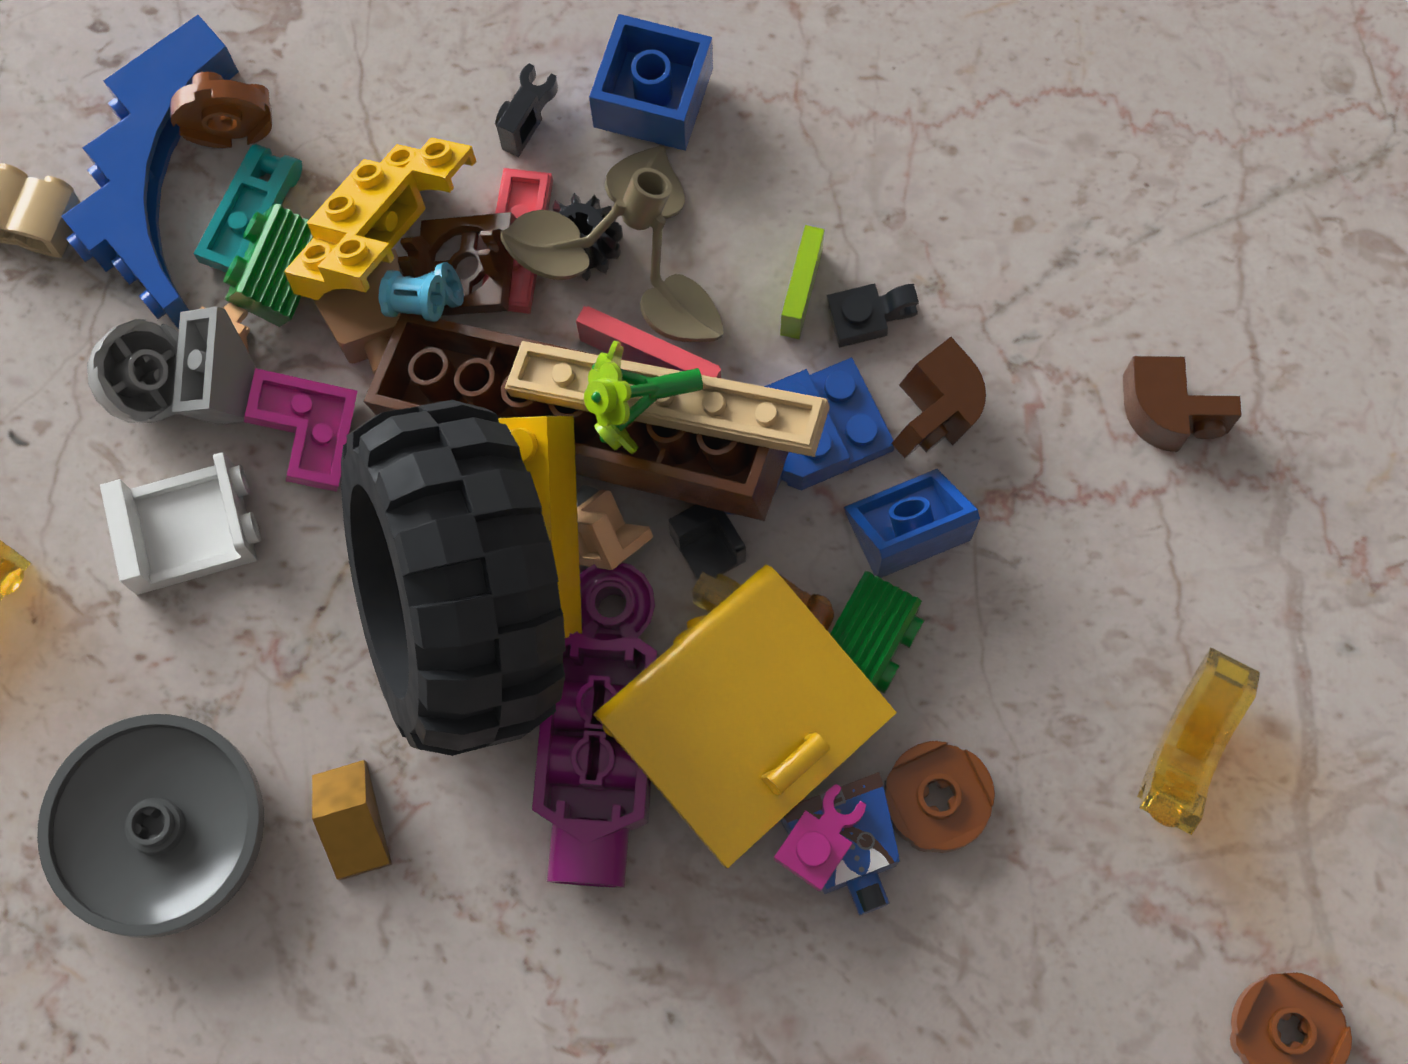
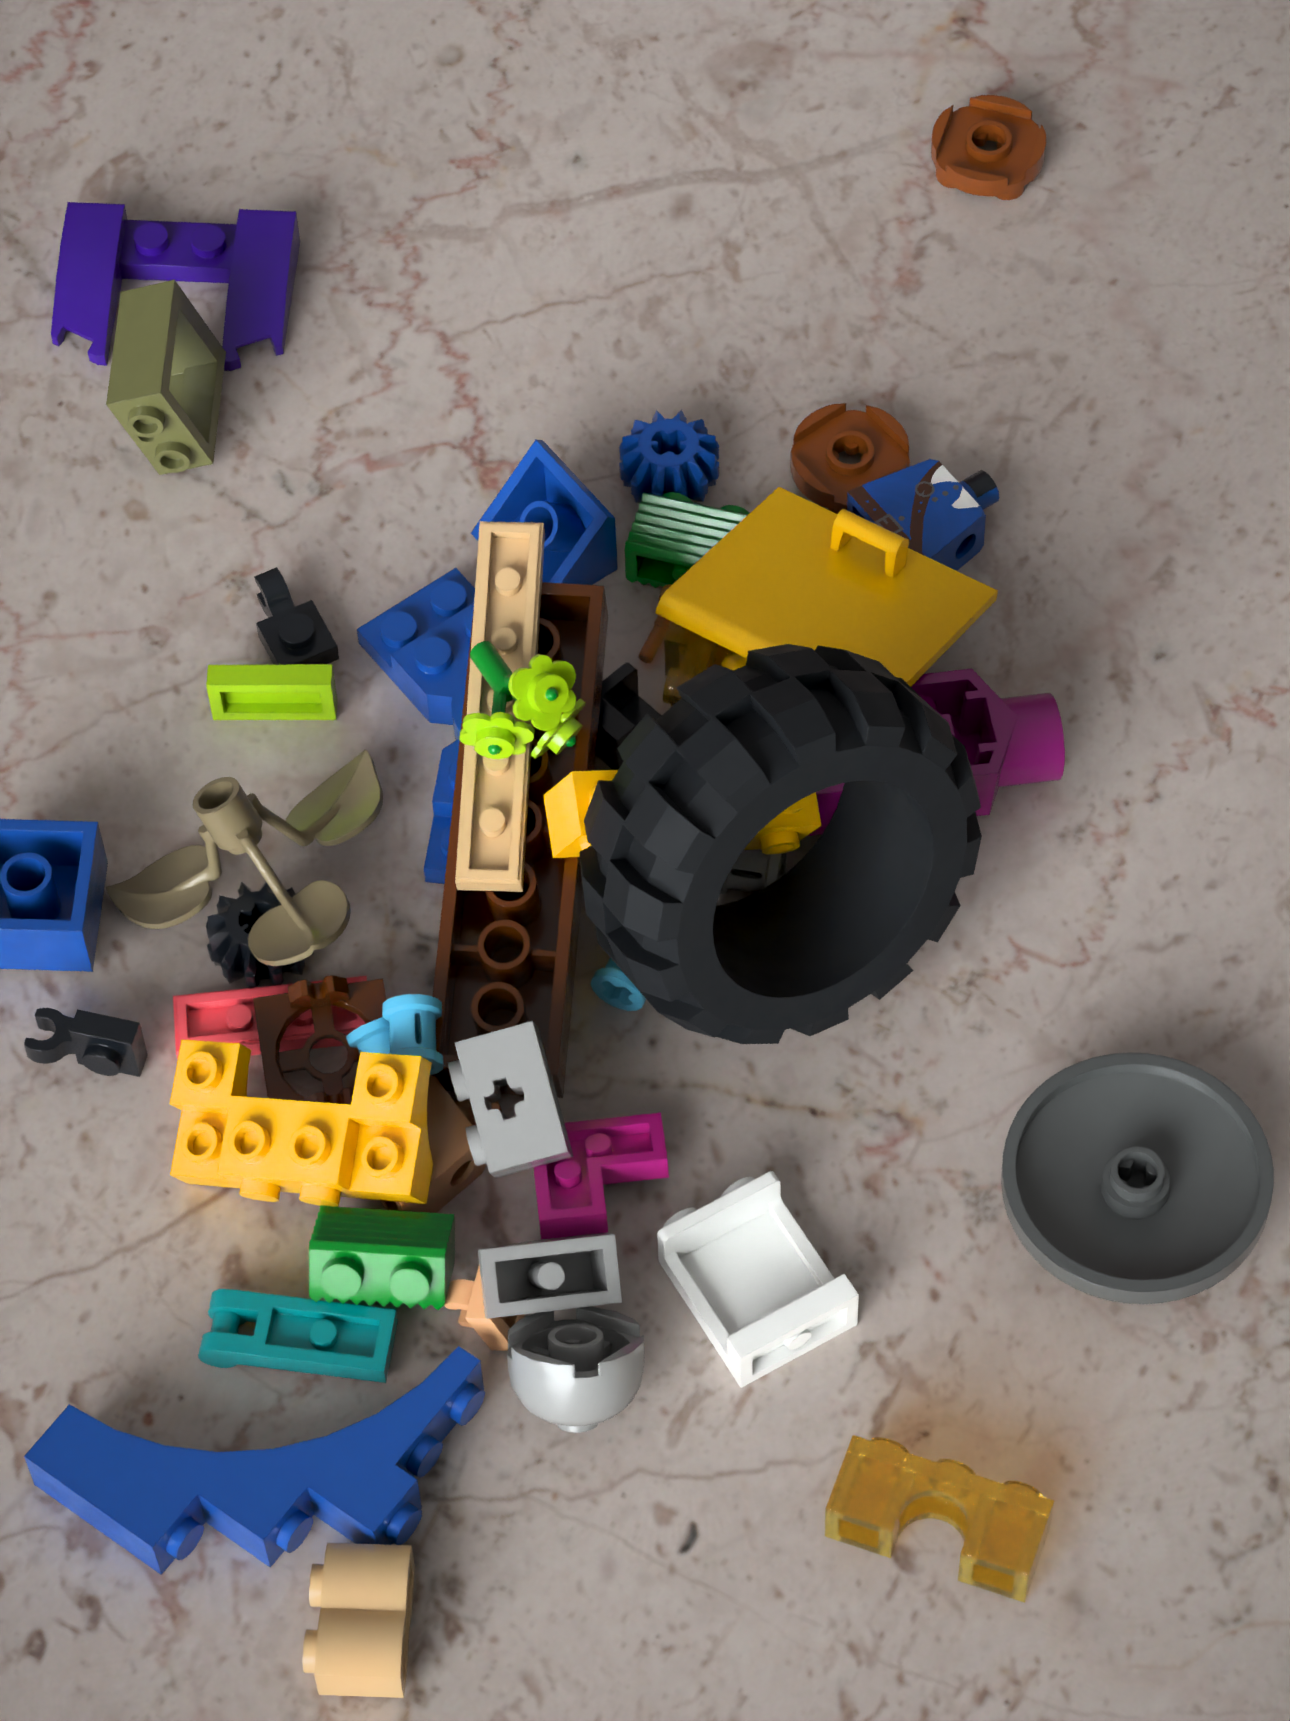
camera: 105 degrees left, 15 degrees down
(221, 110) = (171, 1379): dark orange plate -> none
(341, 359) = (519, 1060): none -> light grey brick
(349, 820) = (1052, 998): pearl gold slope -> none
(601, 330) = (402, 827): coral tile -> none
(816, 844) = (943, 524): dark pink plate -> none
(948, 393) = (388, 520): reddish brown brick -> none
(986, 647) = (669, 458): none -> blue gear
(1131, 211) = (166, 377): none -> olive window
(1162, 409) = (346, 335): reddish brown brick -> none
(1195, 739) = (723, 255): clear yellow arch -> none
(1277, 344) = (104, 247): none -> dark purple wedge

